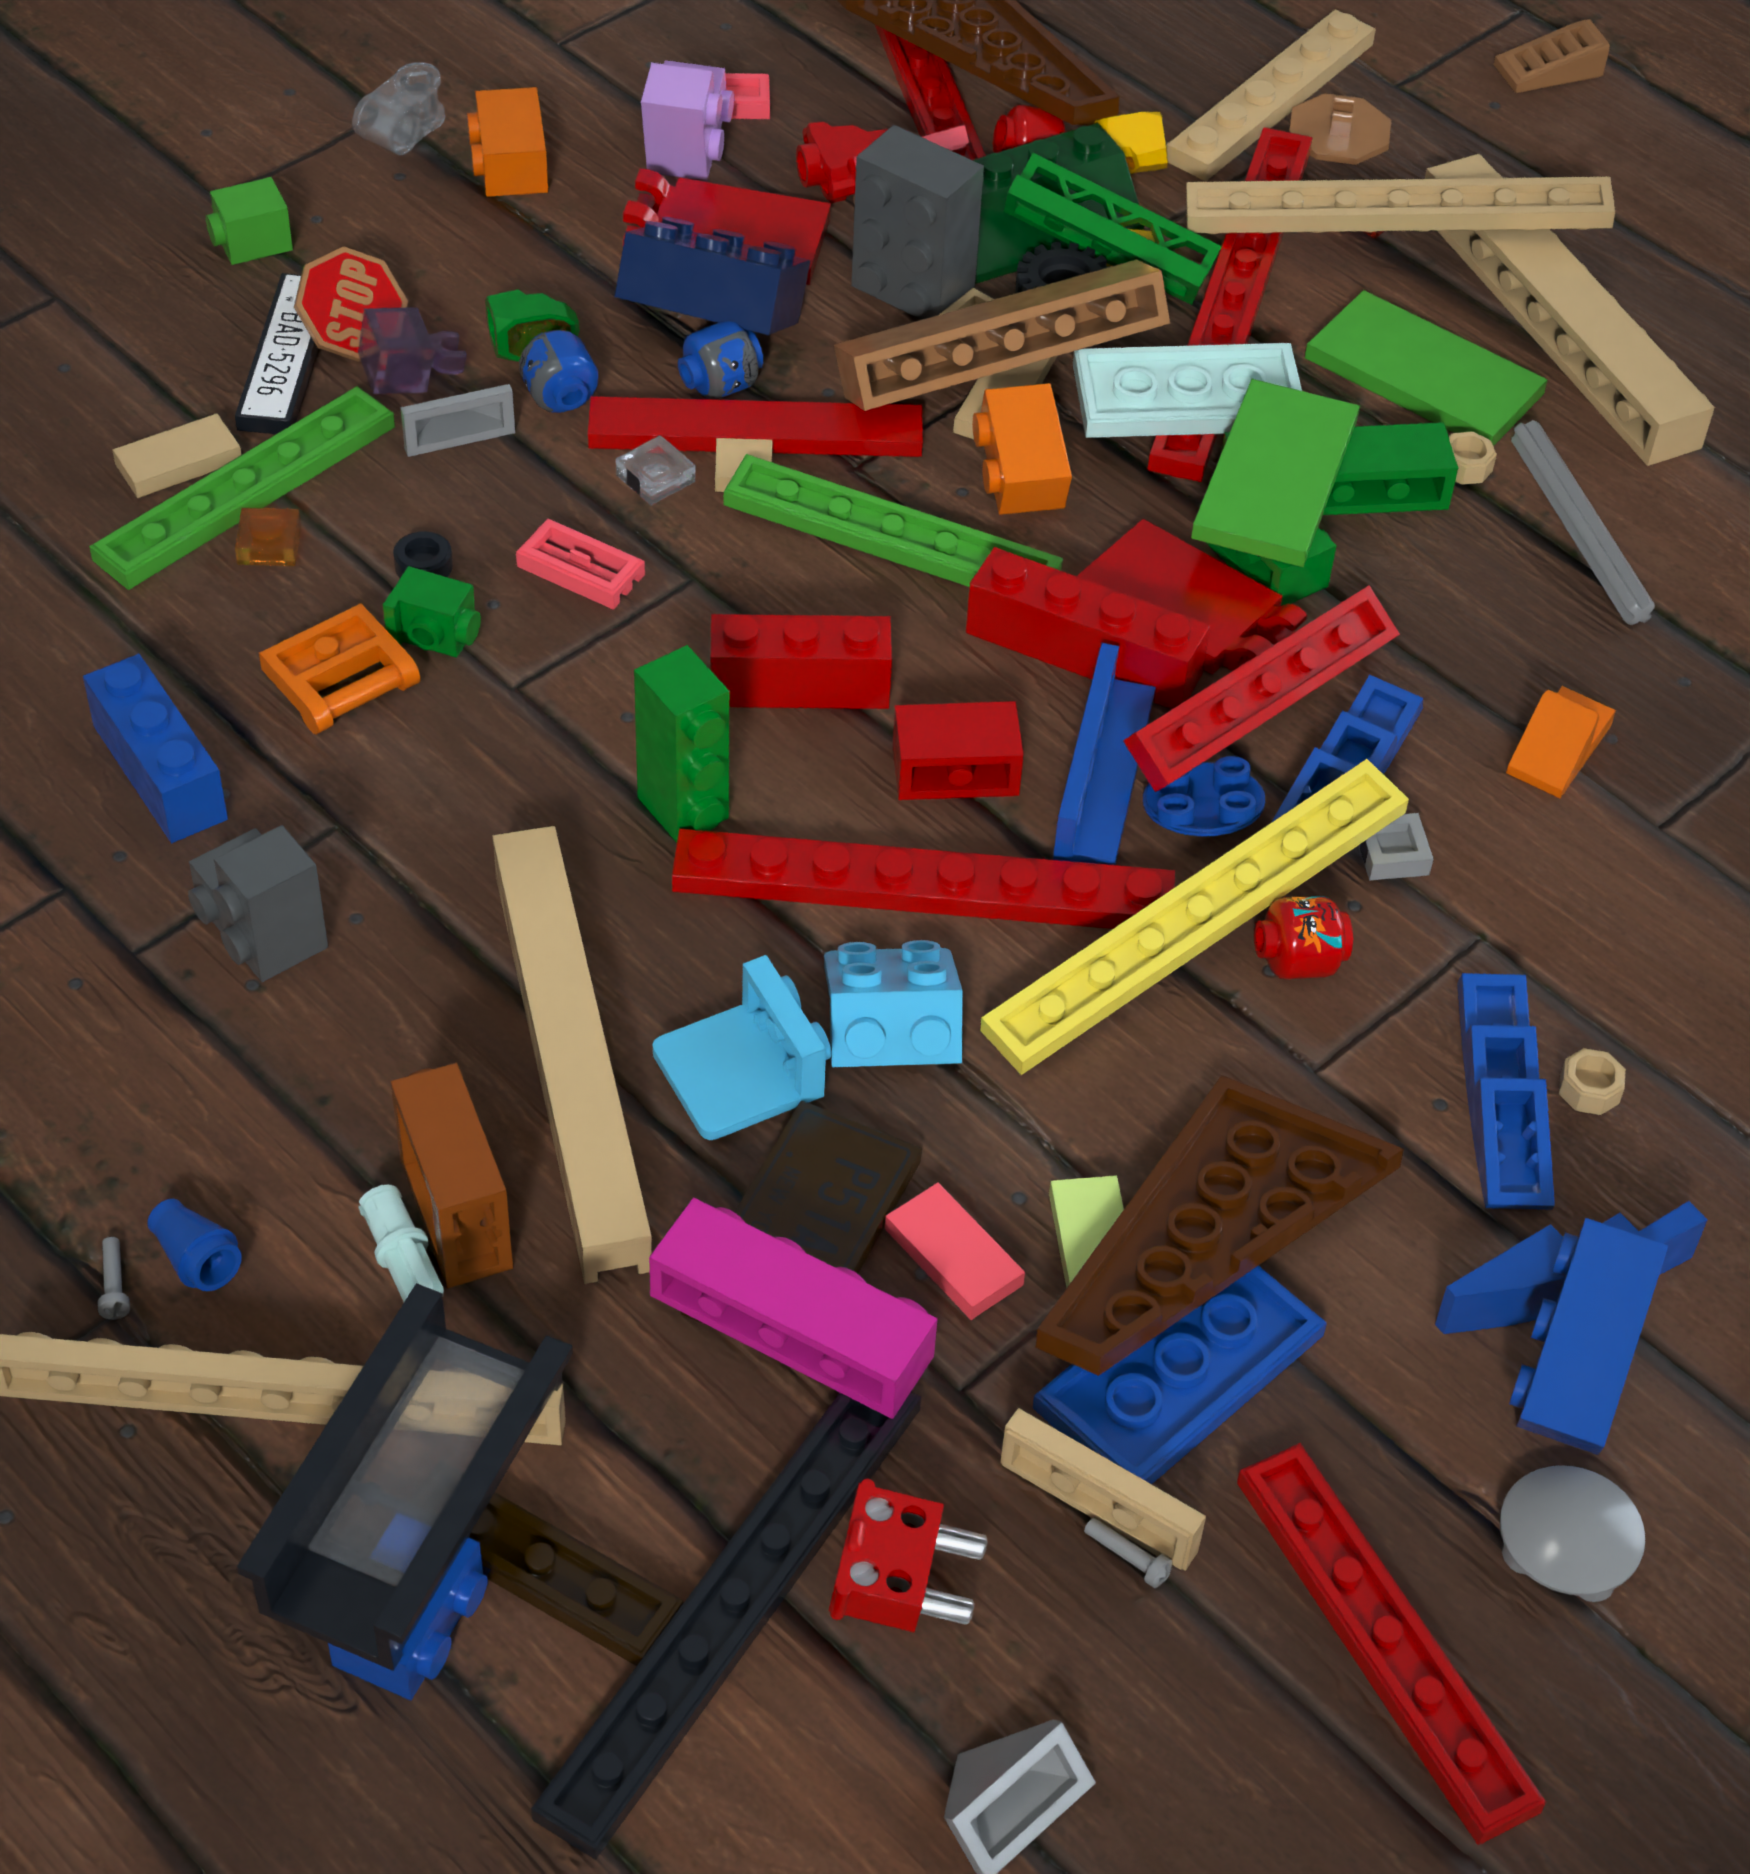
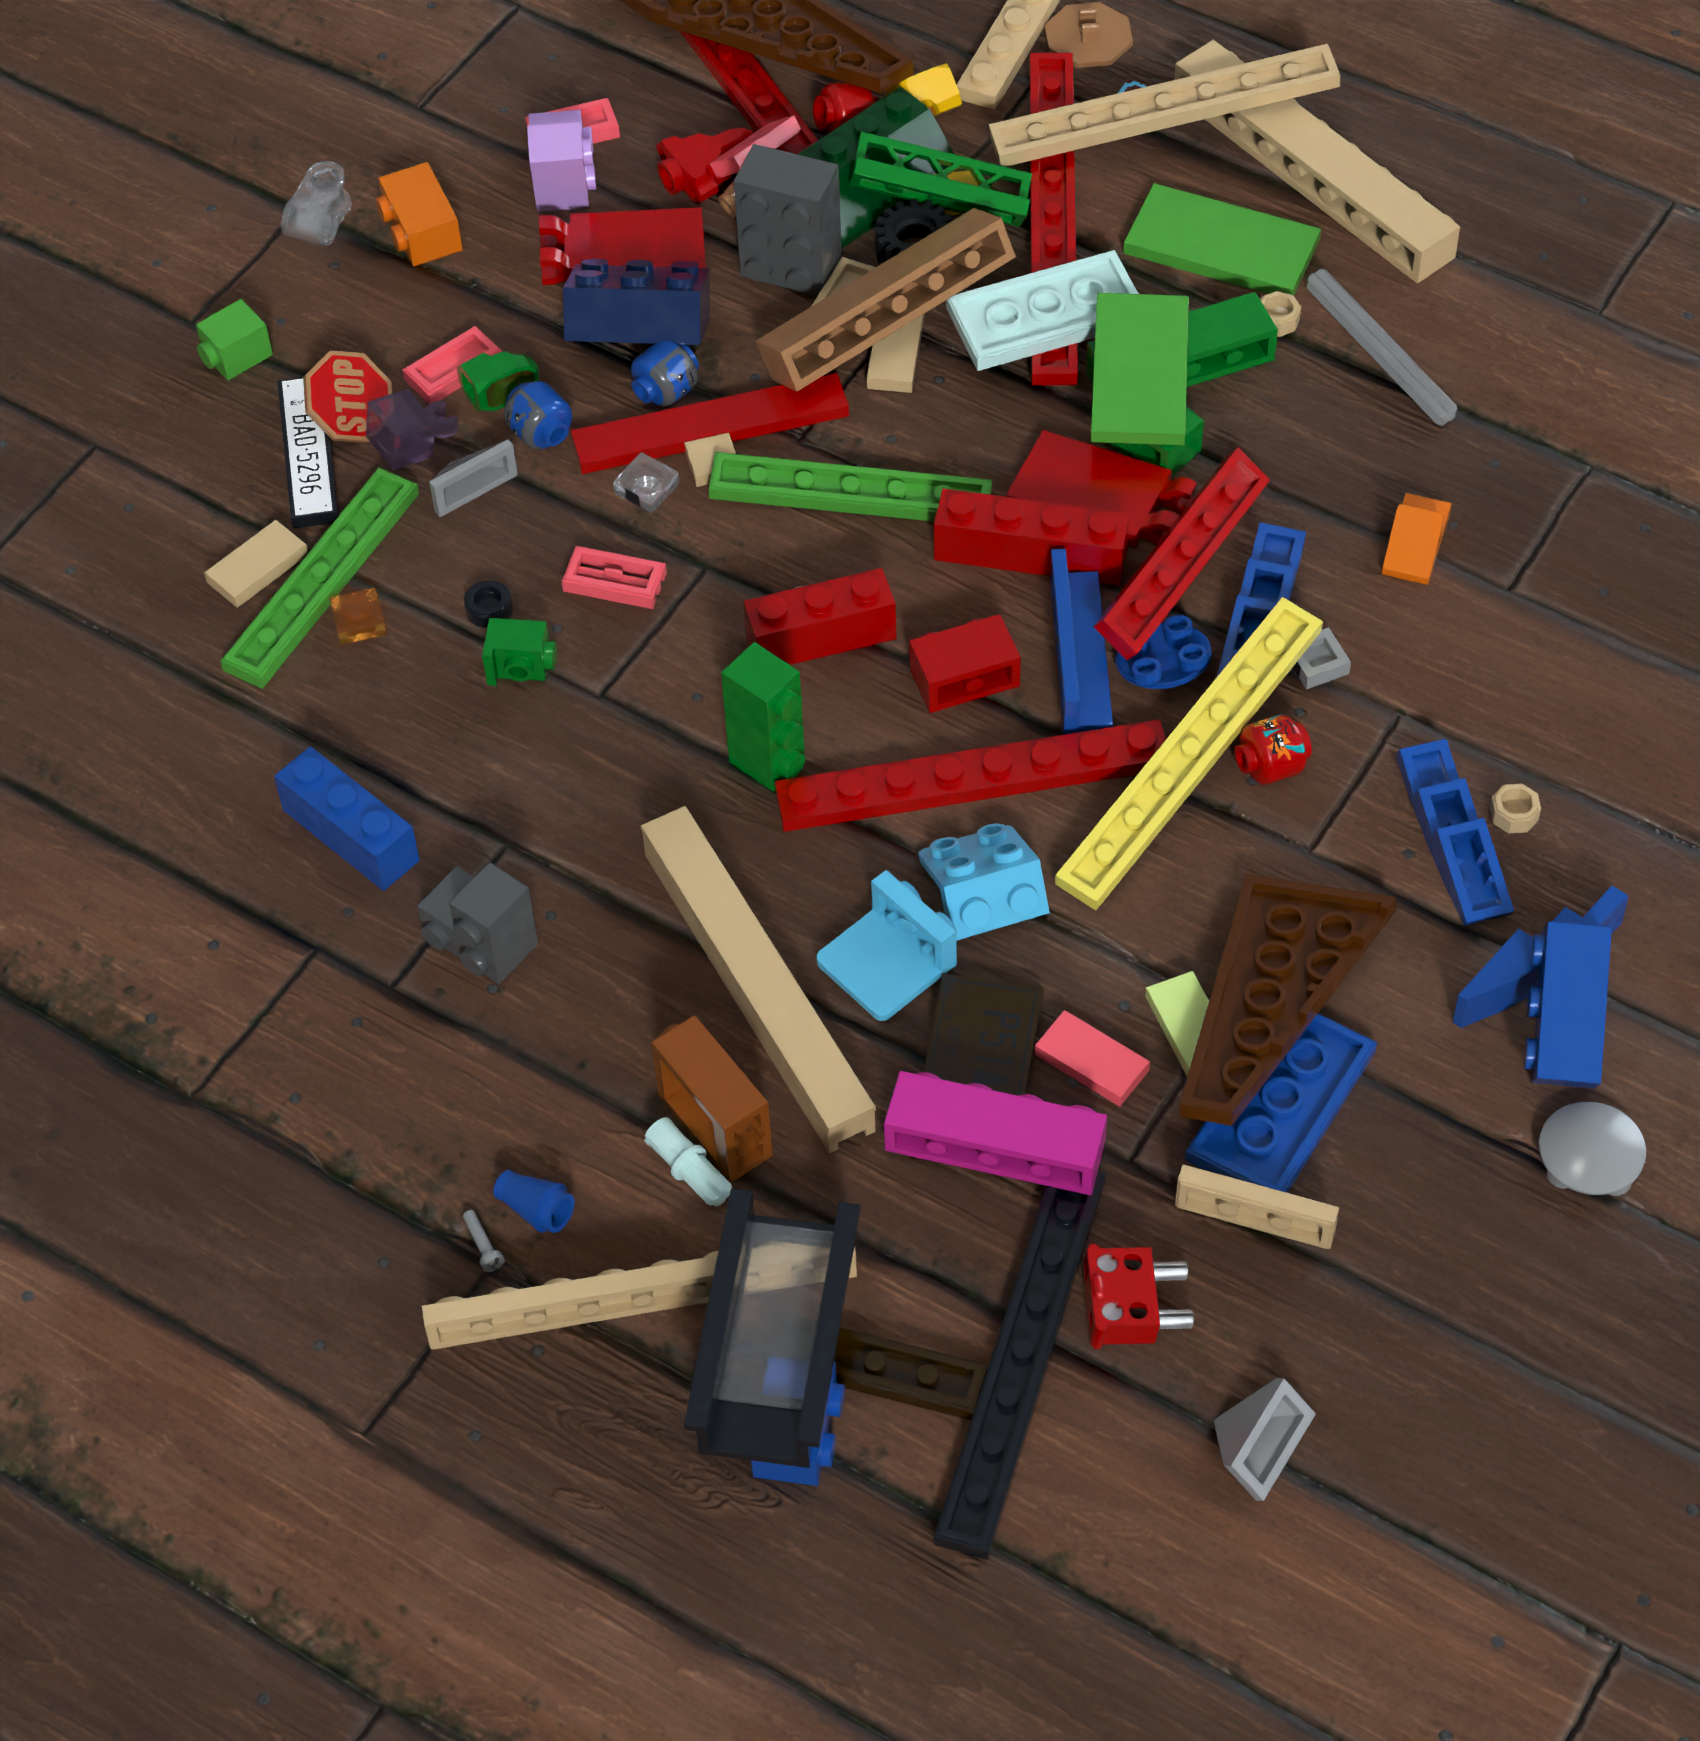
camera: 10 degrees left, 5 degrees up
(331, 654) = (450, 704): orange plate -> none
(463, 306) = (437, 373): none -> coral tile
(1023, 449) = (932, 394): orange brick -> none
(1156, 1569) = (1309, 1253): light grey piece -> none
(1391, 1645) = (1487, 1260): red tile -> none

